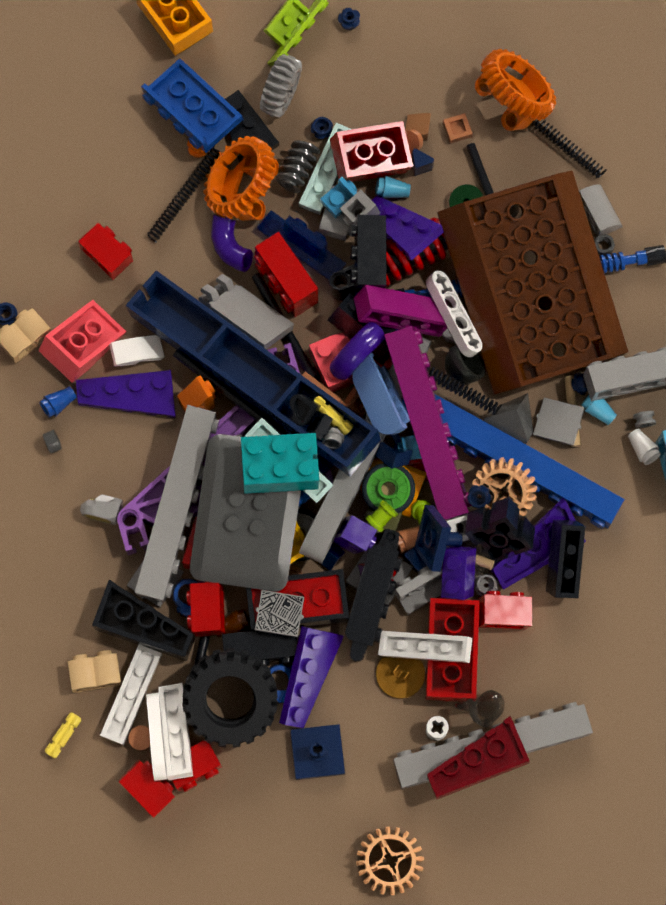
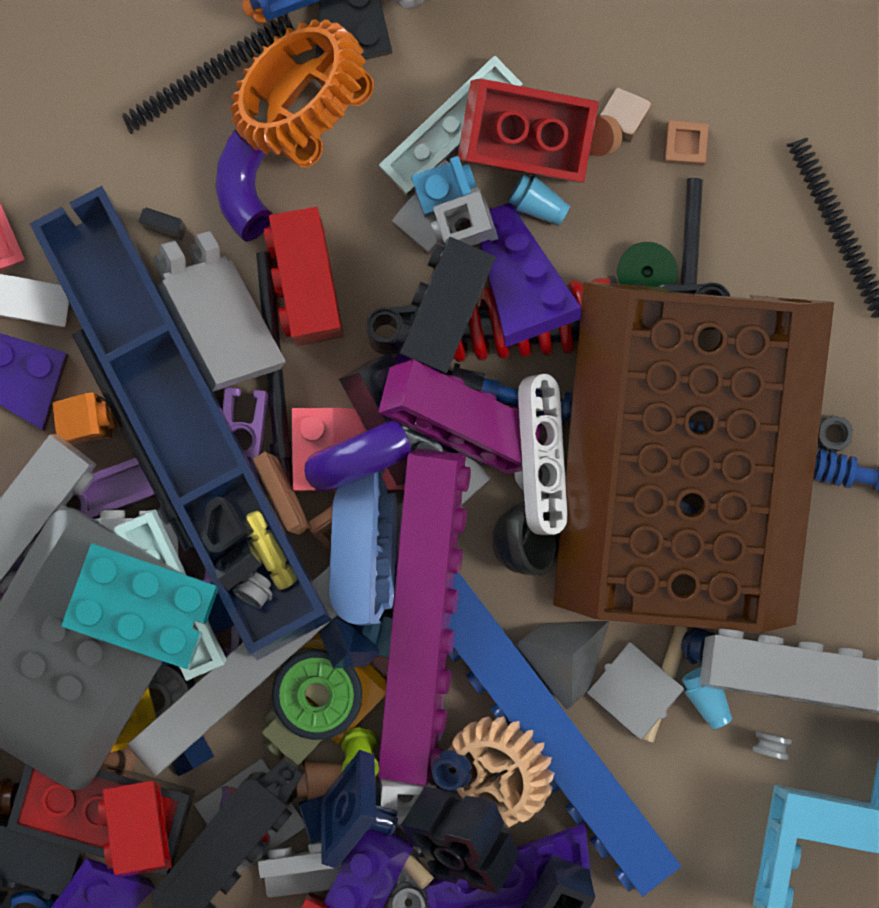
camera: 25 degrees right, 10 degrees up
(106, 250) = (44, 117): red brick -> none
(194, 280) = (162, 223): none -> black tile
(279, 613) = (58, 825): light grey piece -> none
(296, 164) = (402, 100): dark grey piece -> none
(305, 244) = (356, 234): clear blue bracket -> none
(321, 122) = (470, 43): dark blue plate -> none
(323, 593) = (135, 829): none -> red brick
(355, 535) = (233, 749): dark purple brick -> none
(381, 516) = (284, 738): lime bush -> none
(421, 162) = (603, 177): dark blue slope -> none
(464, 391) = (502, 584): black piece -> none
(518, 95) = (829, 126): orange piece -> none
(599, 210) = (852, 374): light grey brick -> none
(644, 447) = (751, 788): white cone -> none

